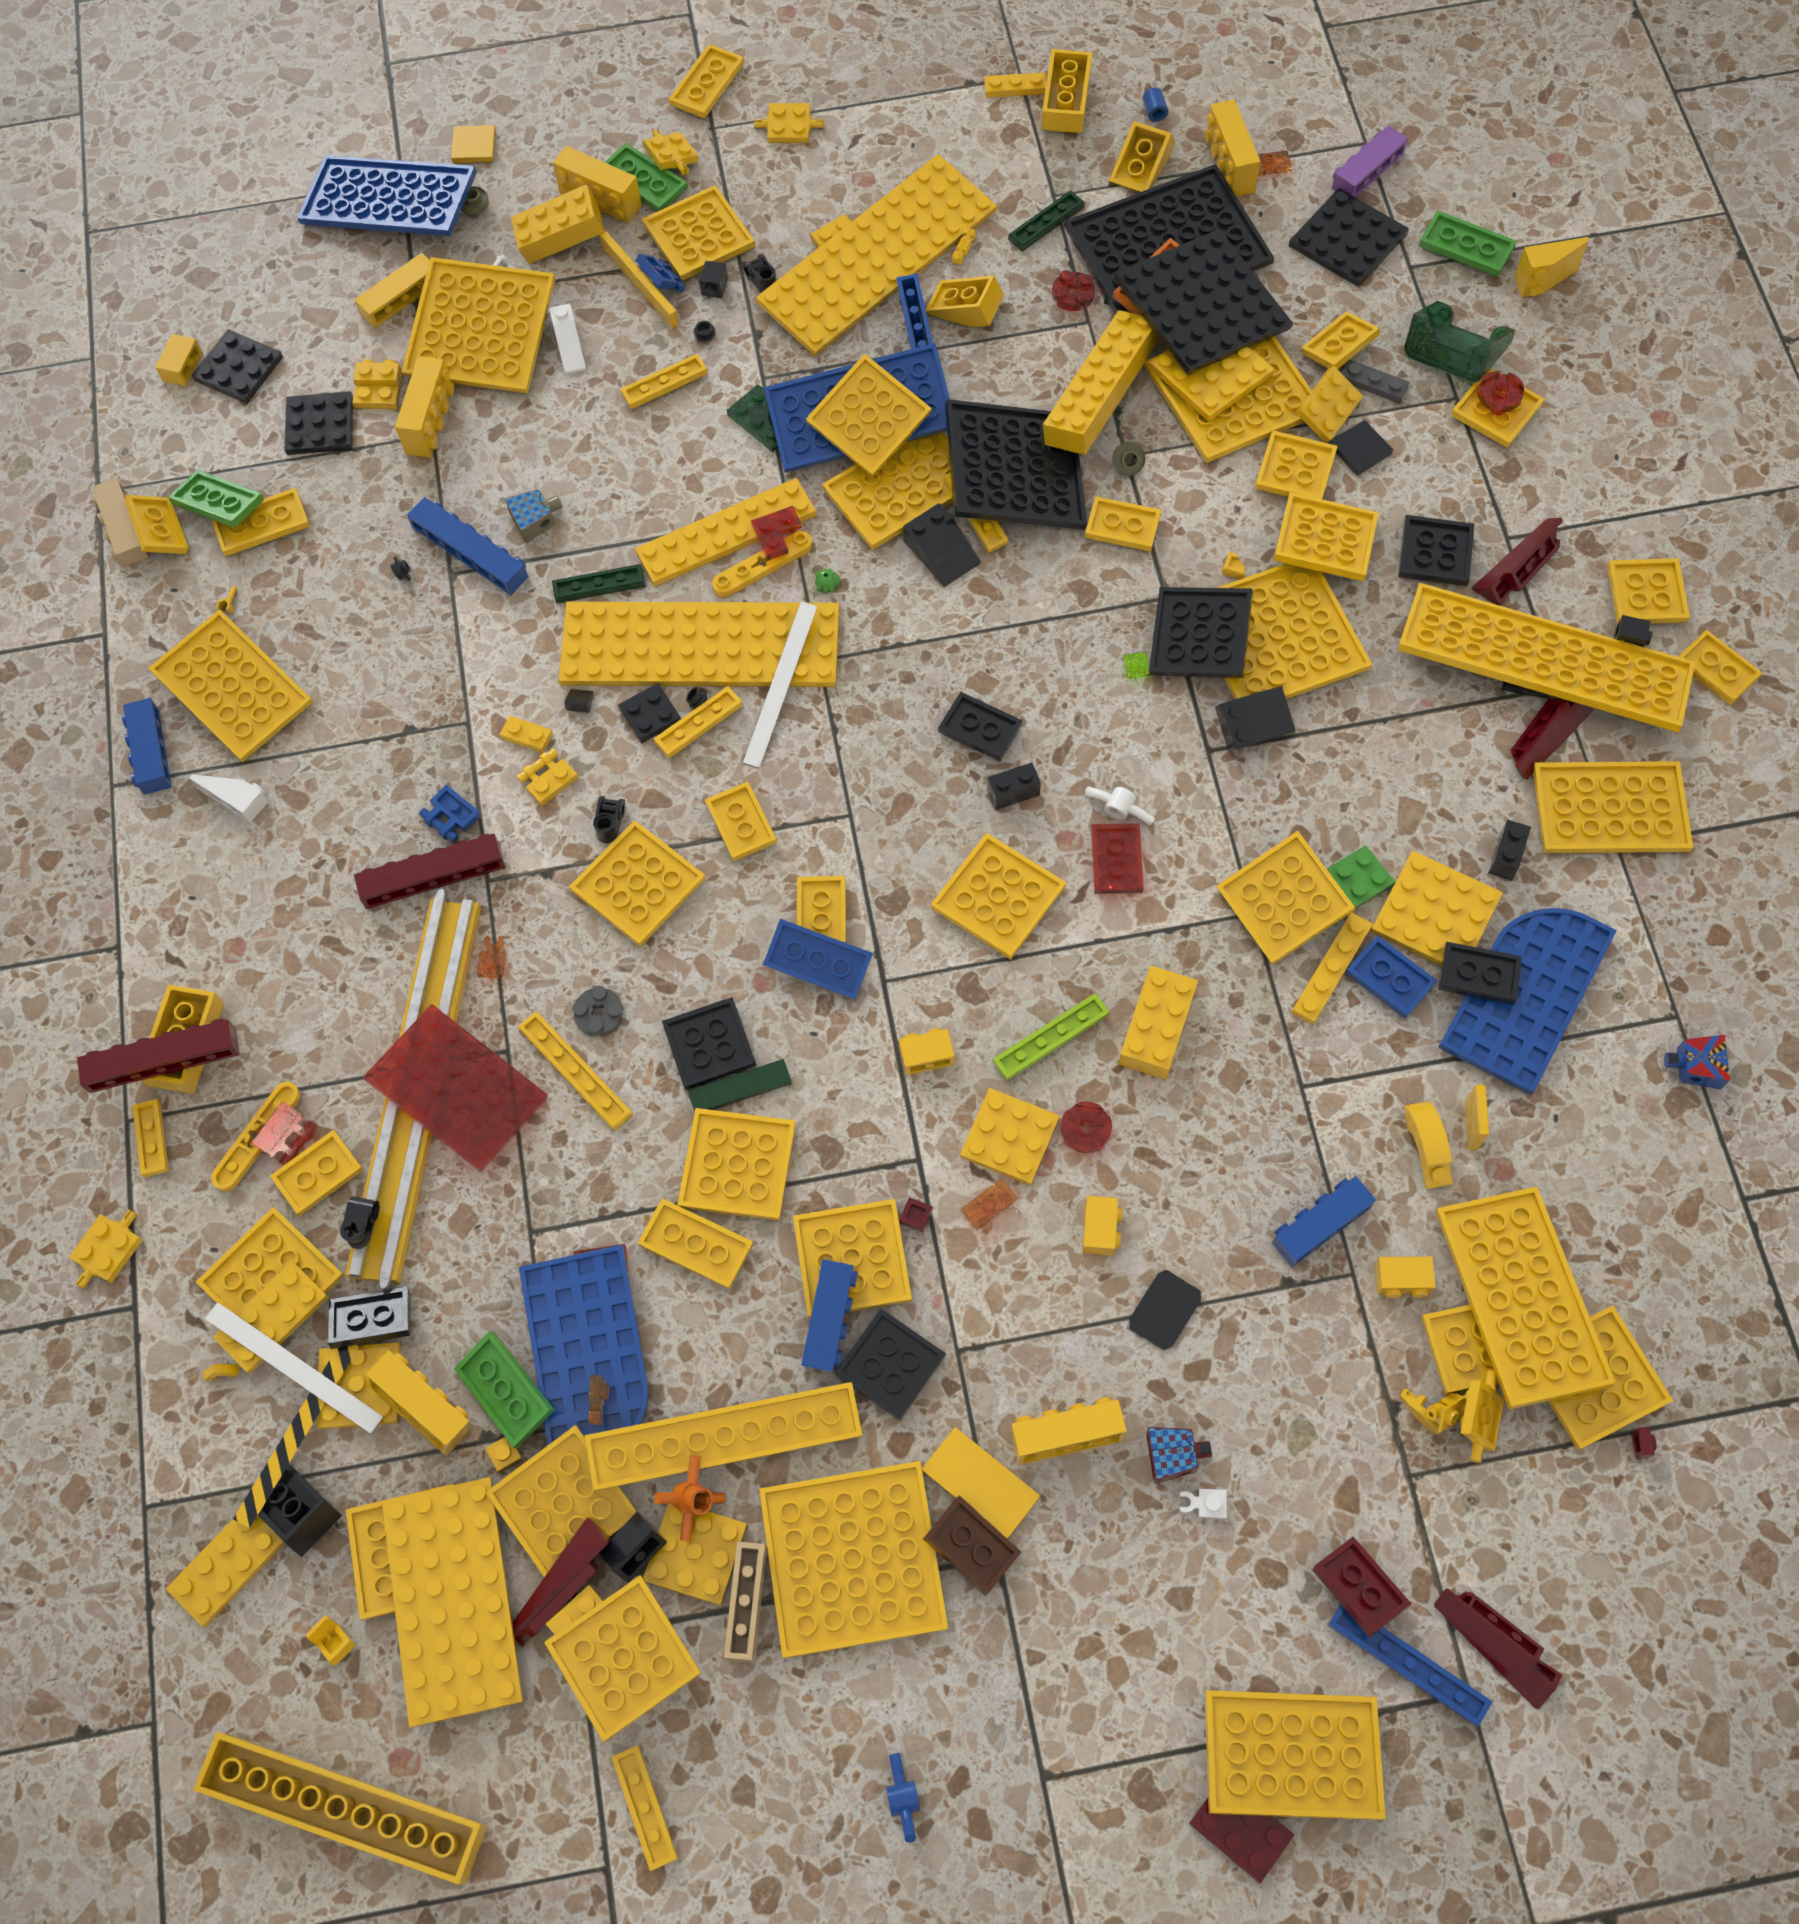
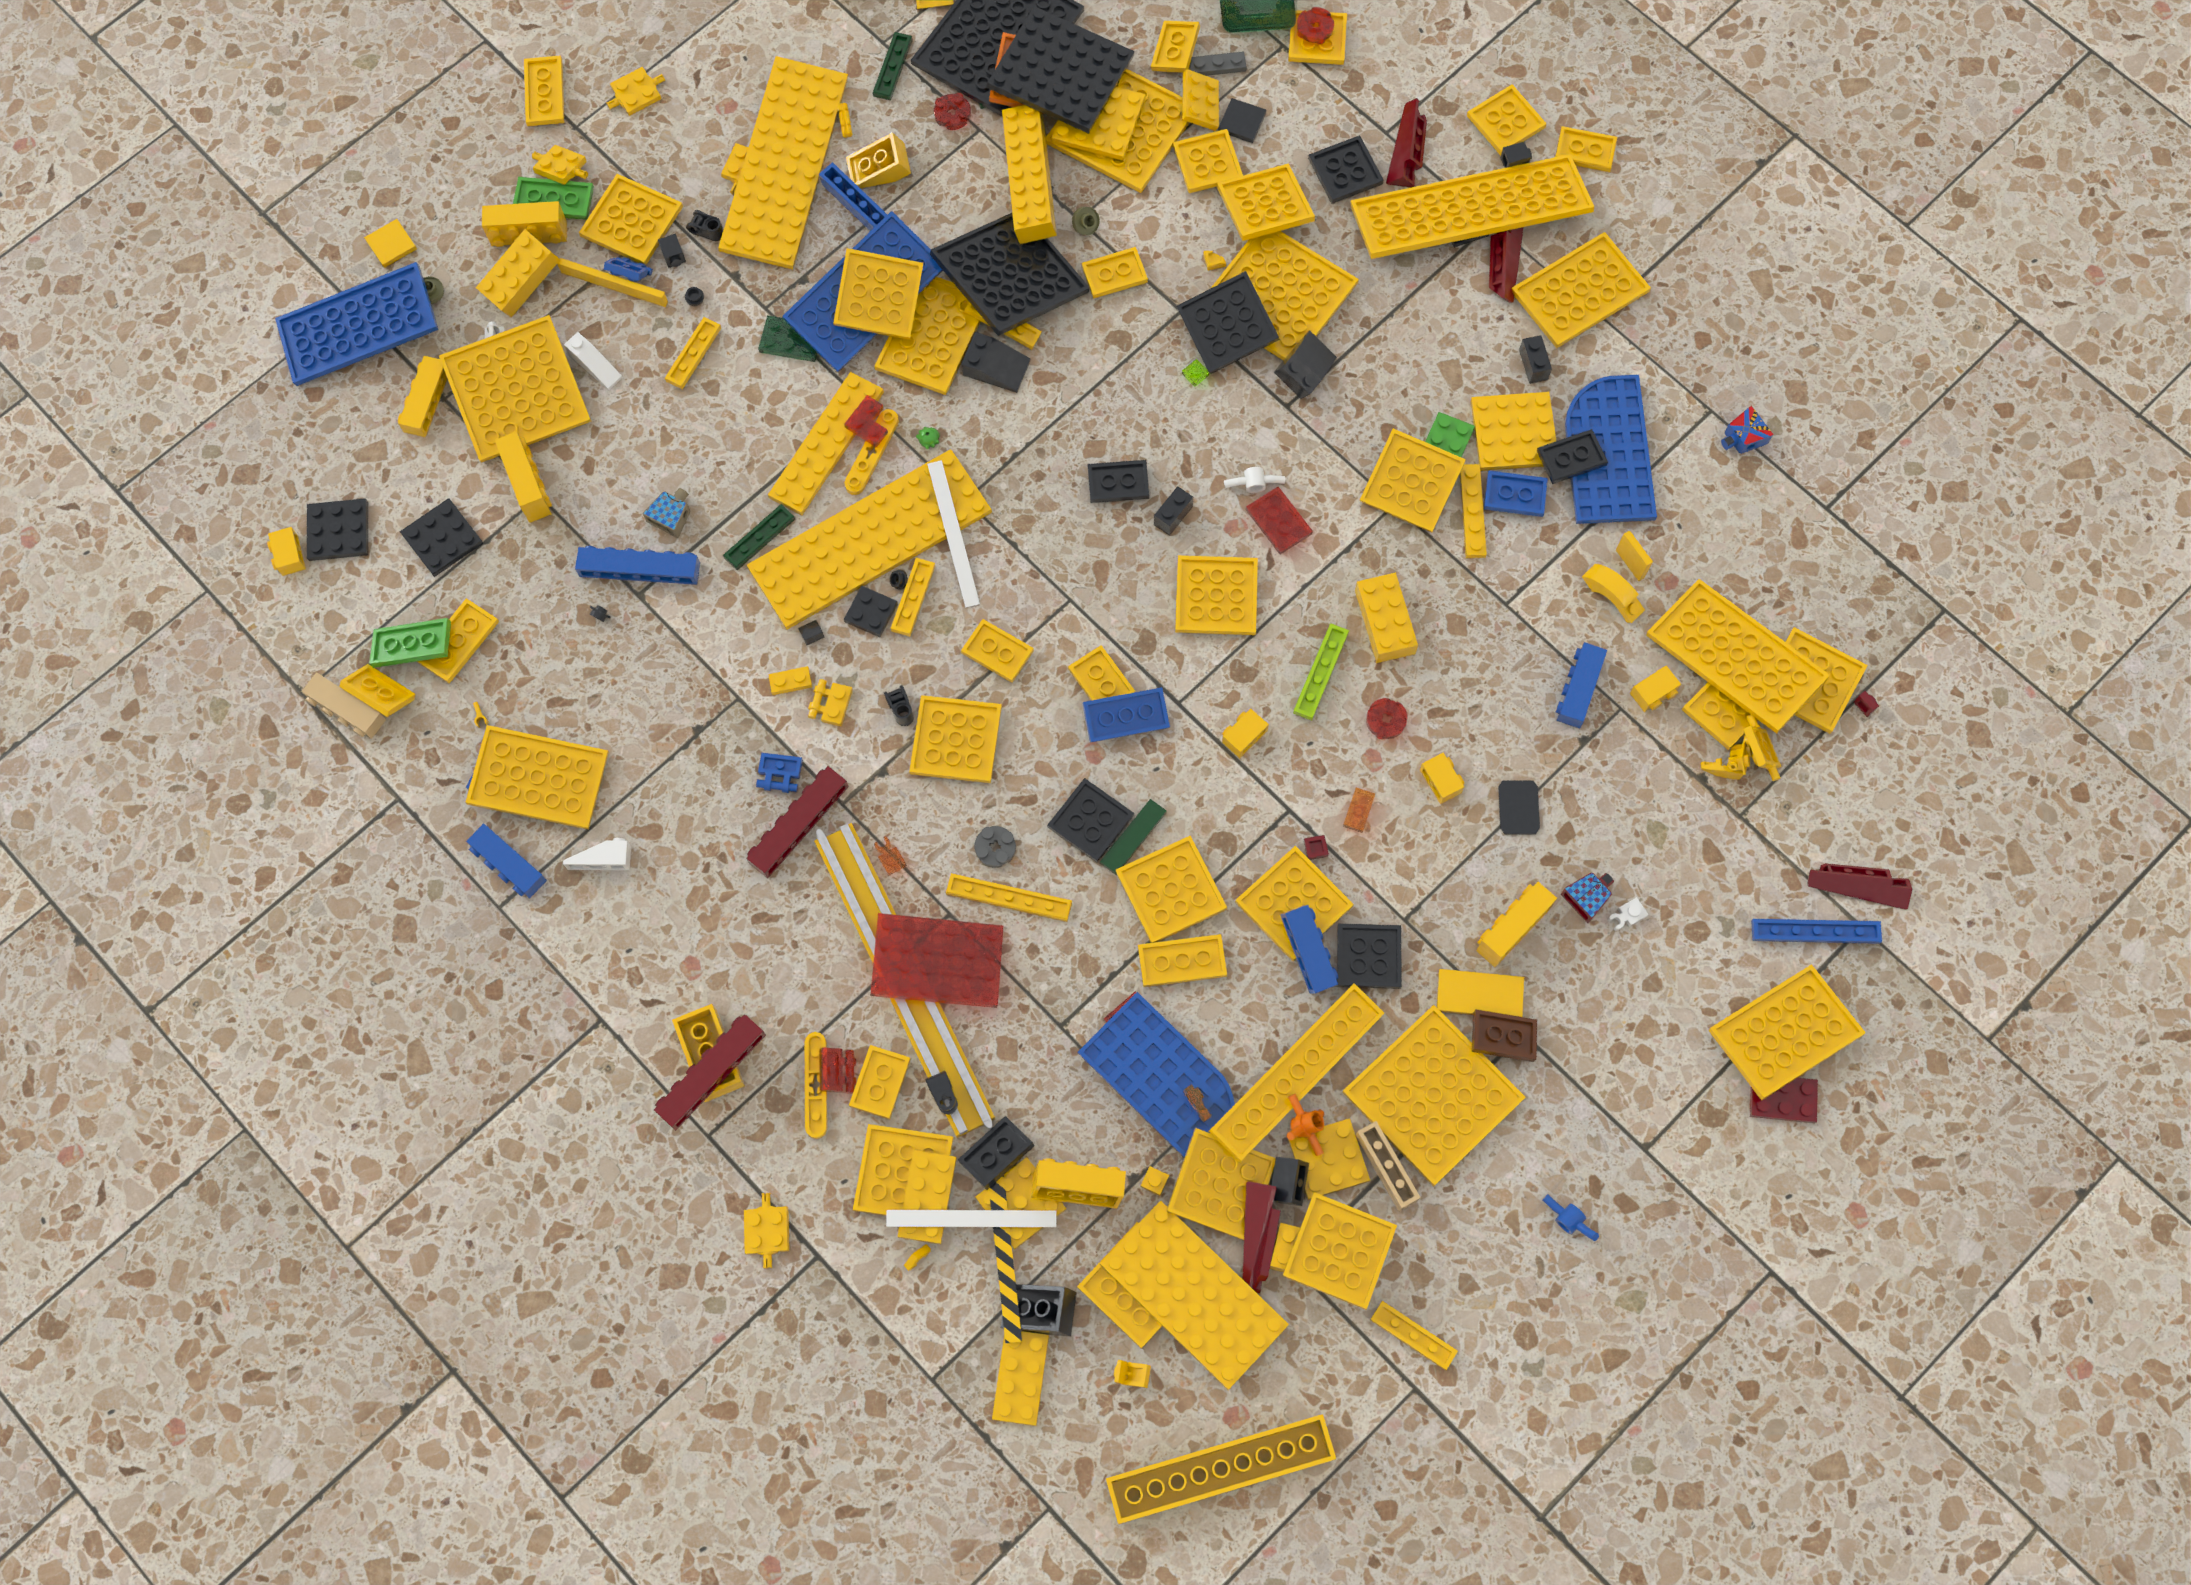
camera: 35 degrees left, 5 degrees up
(150, 1138) = (738, 1135): yellow plate -> none
(377, 384) = (466, 481): yellow plate -> none
(504, 1389) = (1126, 1138): bright green plate -> none
(1009, 1136) = (1340, 756): yellow plate -> none
(1361, 1586) = (1759, 902): dark red plate -> none

